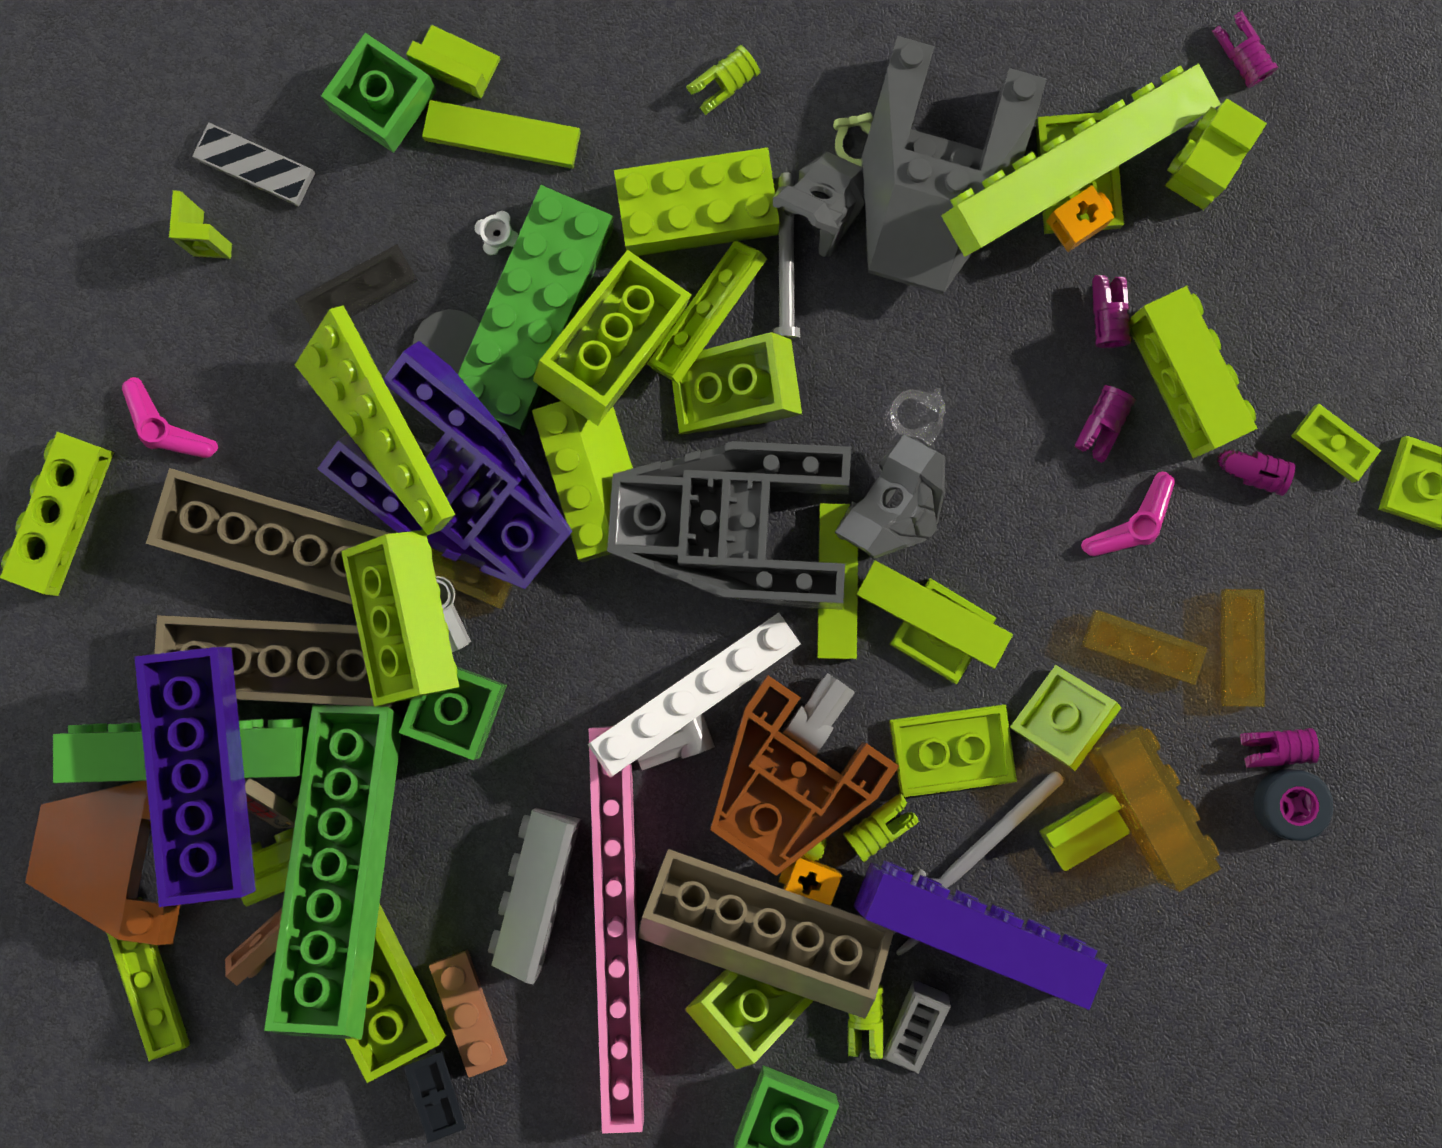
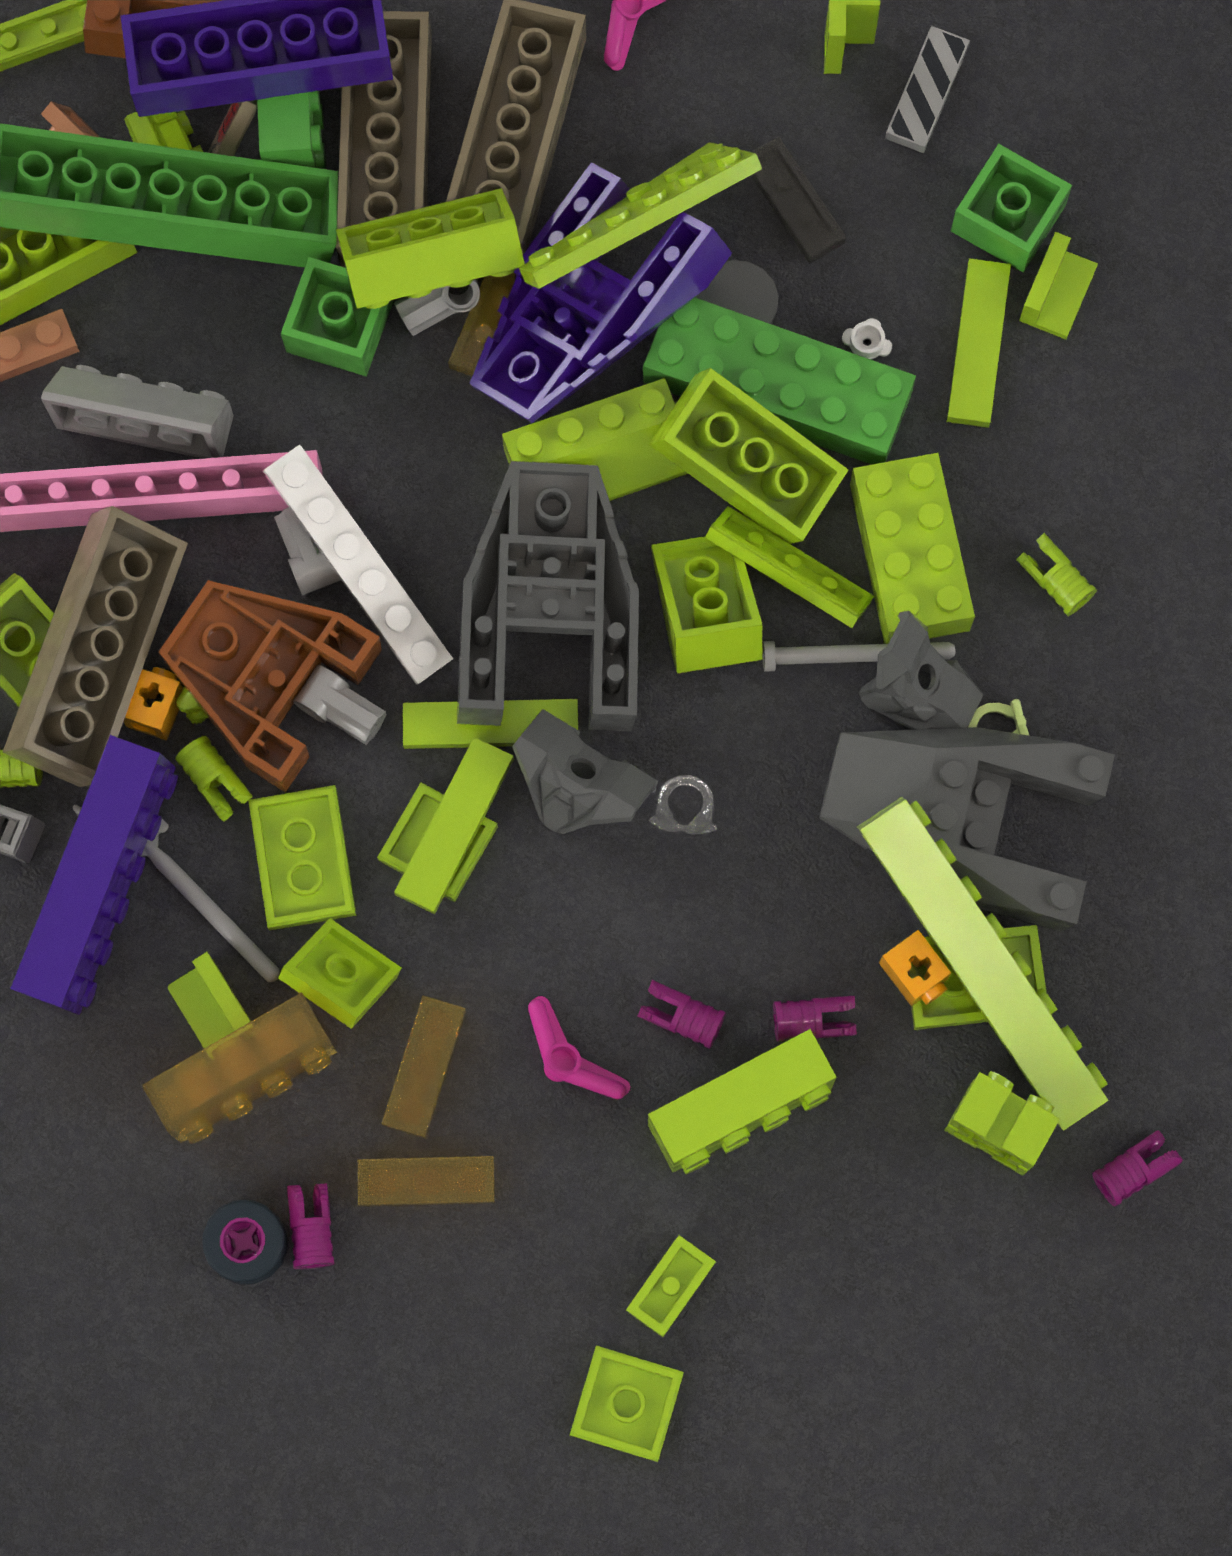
camera: 90 degrees right, 10 degrees down
(1249, 468) = (635, 1192): magenta hinge -> none

